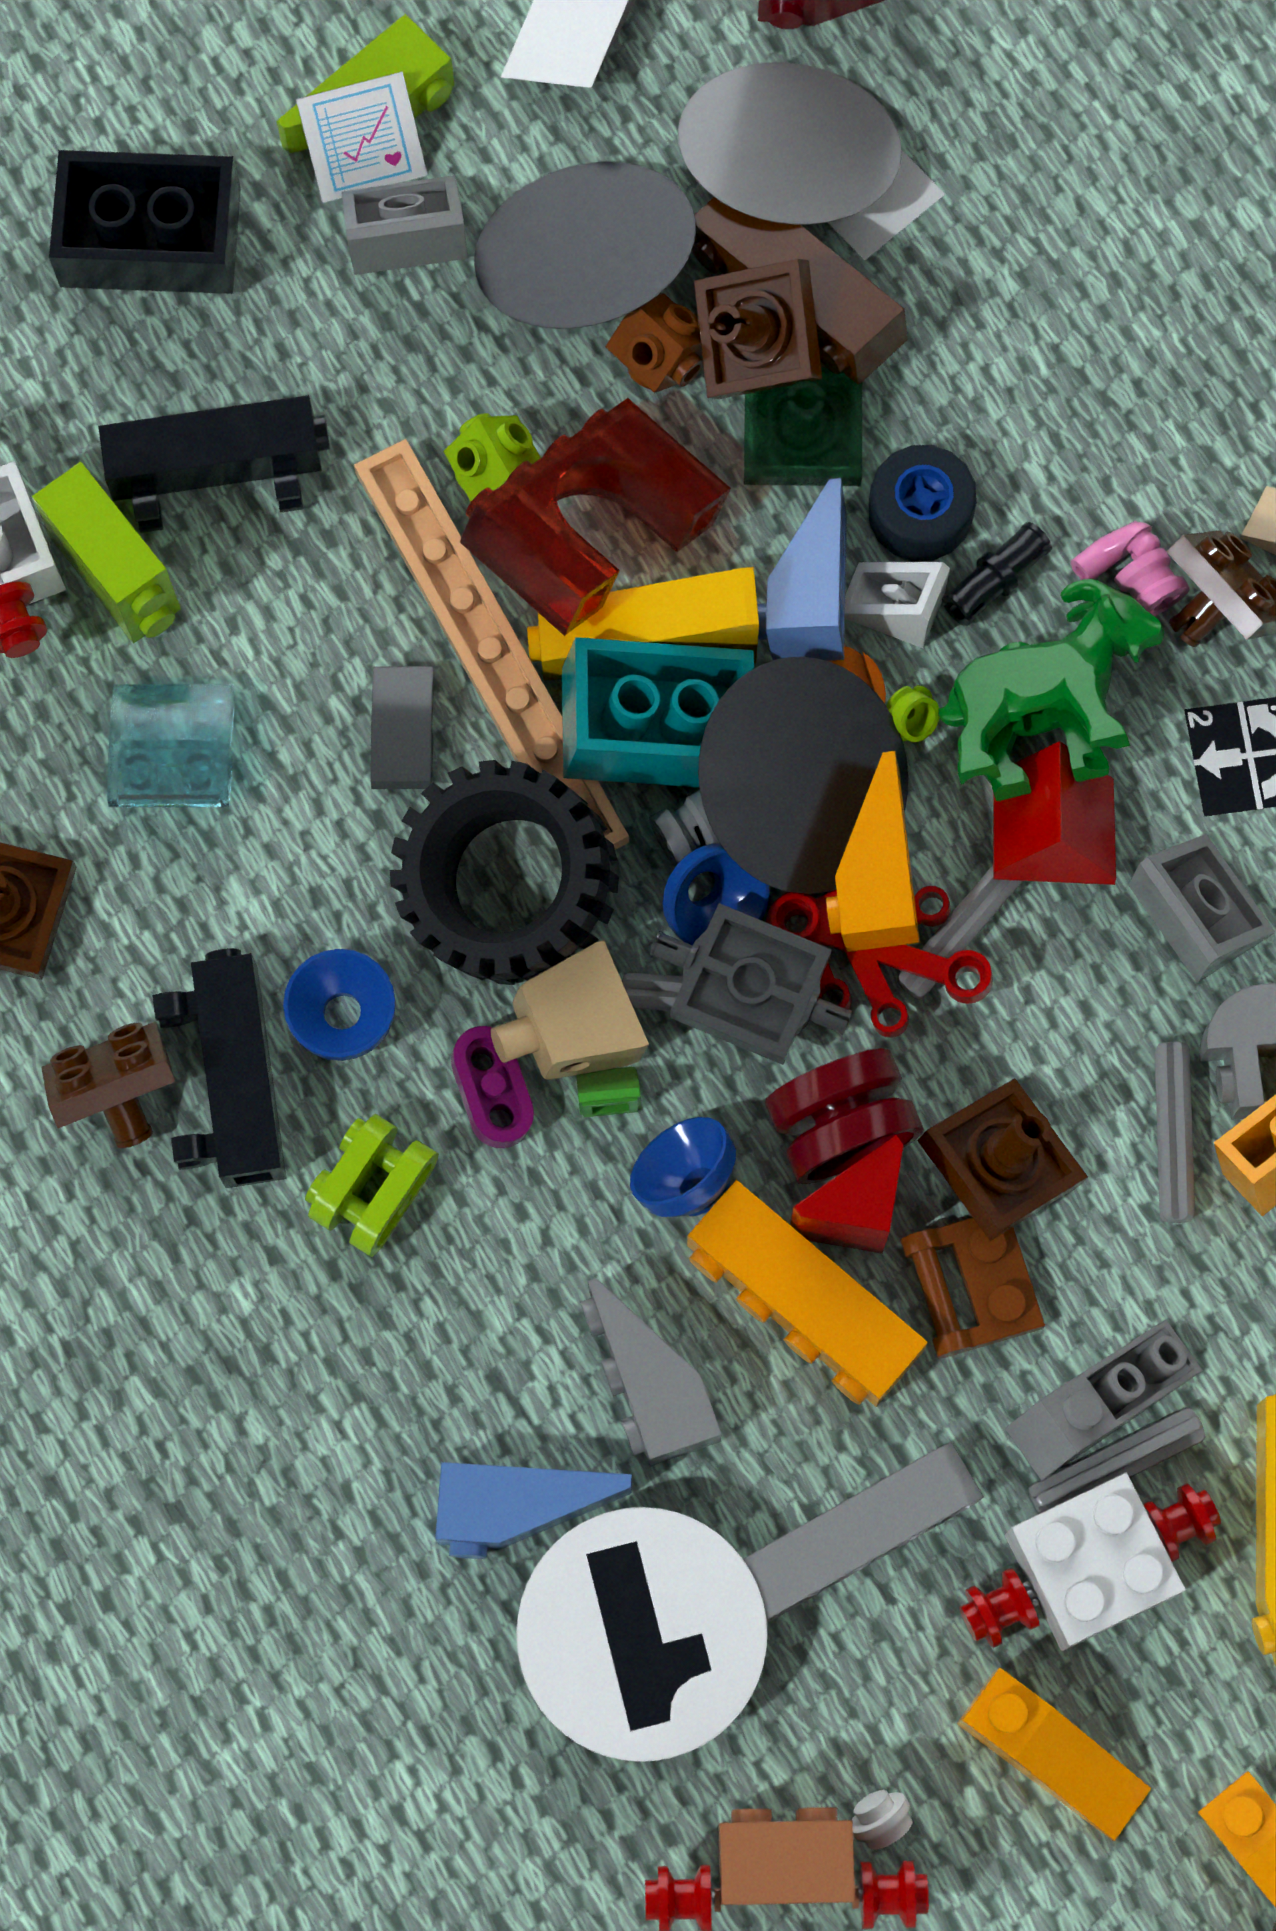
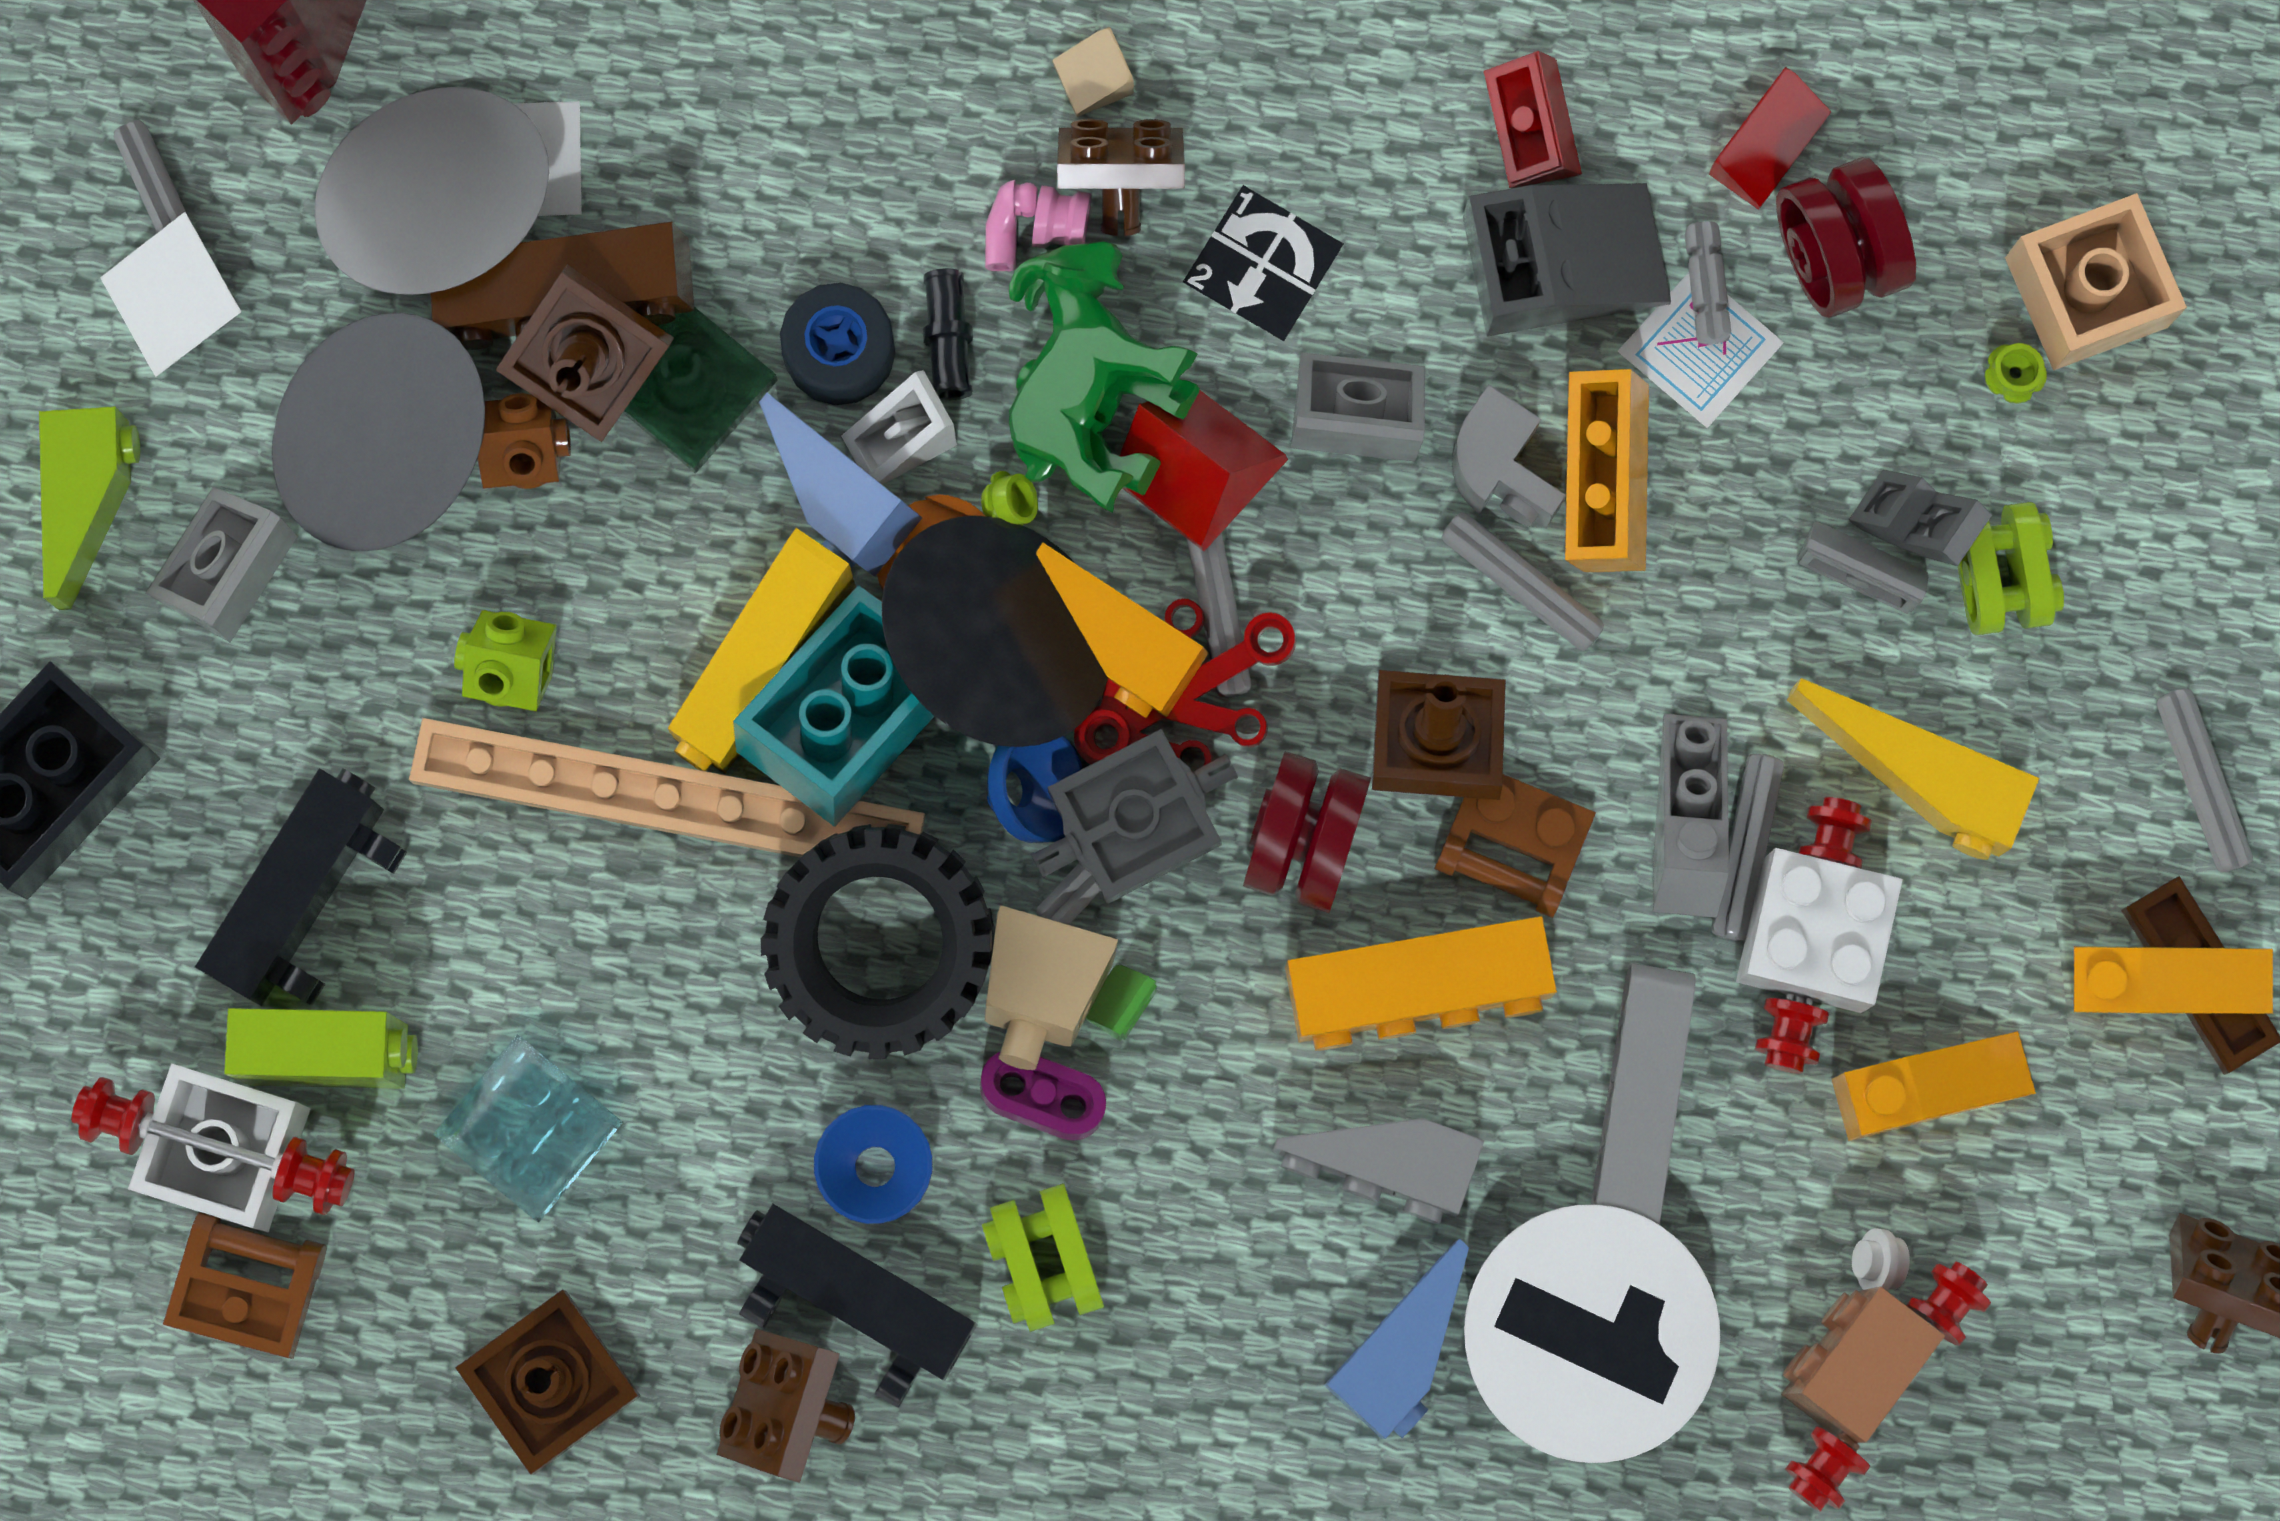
camera: 55 degrees left, 5 degrees up
(362, 136) = (117, 537): white sticker -> none
(402, 727) = (672, 923): dark grey slope -> none
(612, 457) = (609, 689): clear red arch -> none
(678, 1160) = (1225, 994): blue piece -> none
(683, 829) = (956, 763): light grey wheel -> none
(855, 1205) = (1389, 876): red slope -> none

